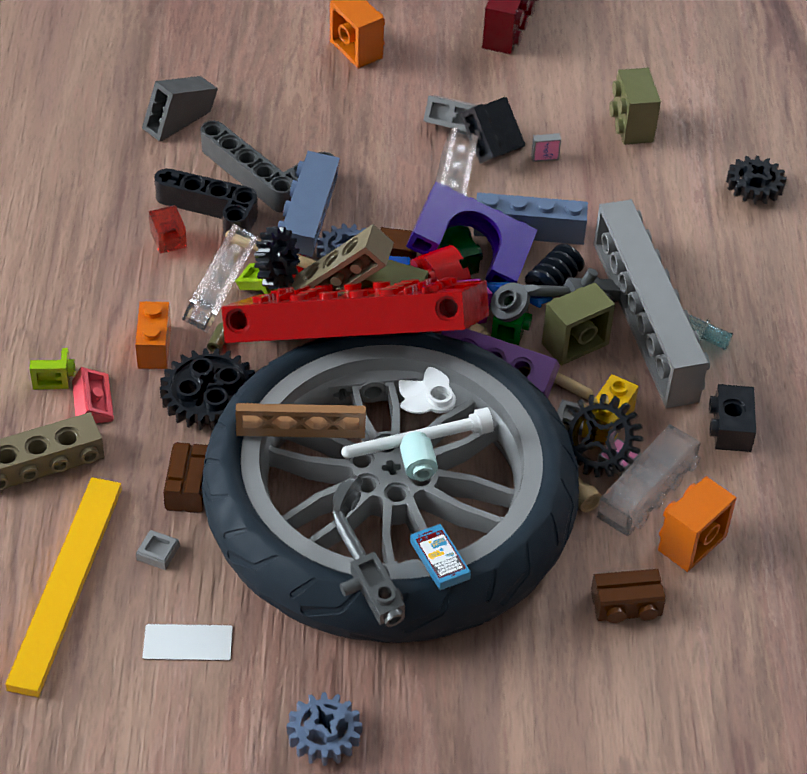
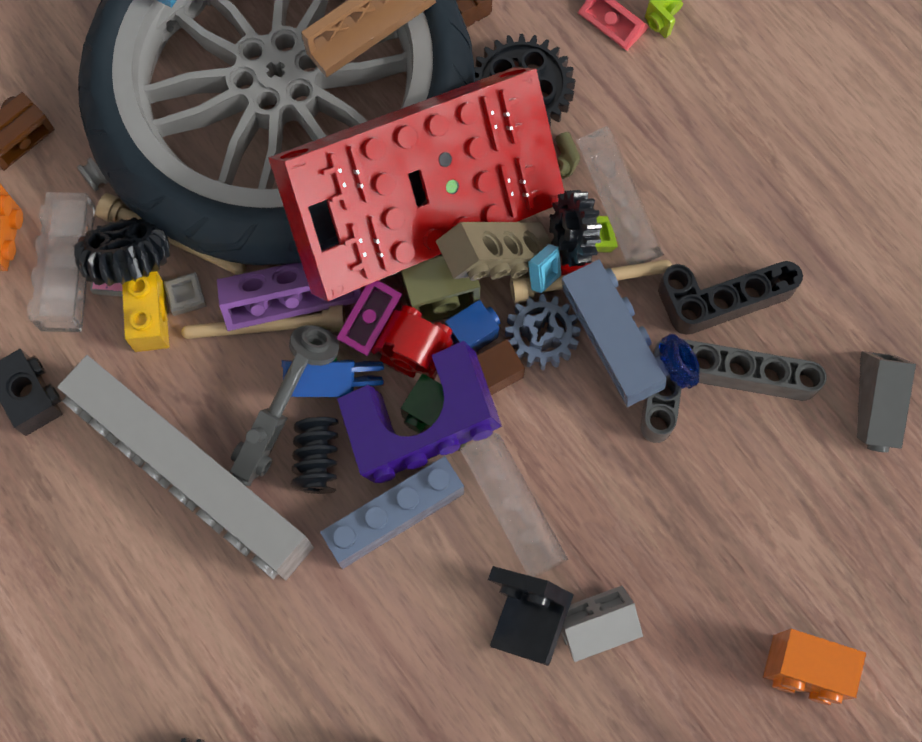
camera: 145 degrees right, 25 degrees up
(153, 335) = (620, 99): orange brick -> none
(167, 229) = (724, 220): clear red brick -> none
(287, 161) = (679, 361): none -> clear blue gear
(311, 256) = (544, 268): none -> medium azure tile
(418, 456) = (235, 48): light aqua brick -> none
(427, 395) = (288, 125): white plate -> none
(478, 422) = (210, 125): white piece -> none
(546, 147) = (458, 646): tile -> none
(577, 323) = (238, 383): olive brick -> none
(584, 526) = (92, 174): none -> light grey bush
(710, 332) = (118, 492): clear light blue axle -> none

